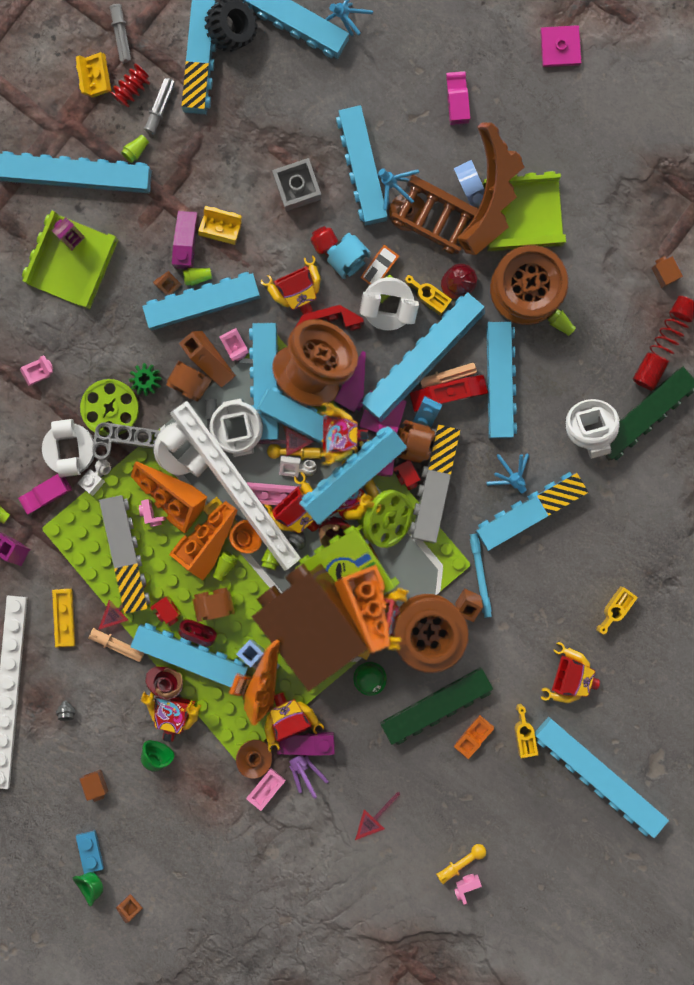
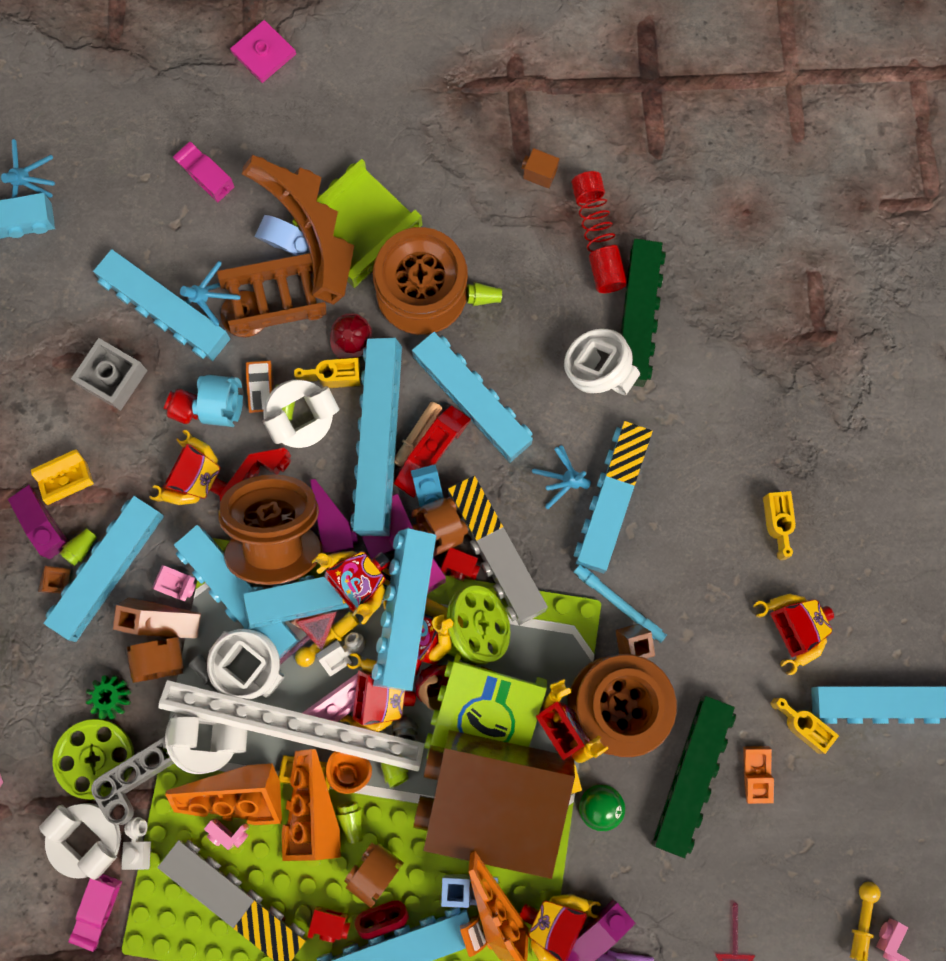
camera: 45 degrees left, 10 degrees down
(365, 604) = (529, 730): orange wedge -> none

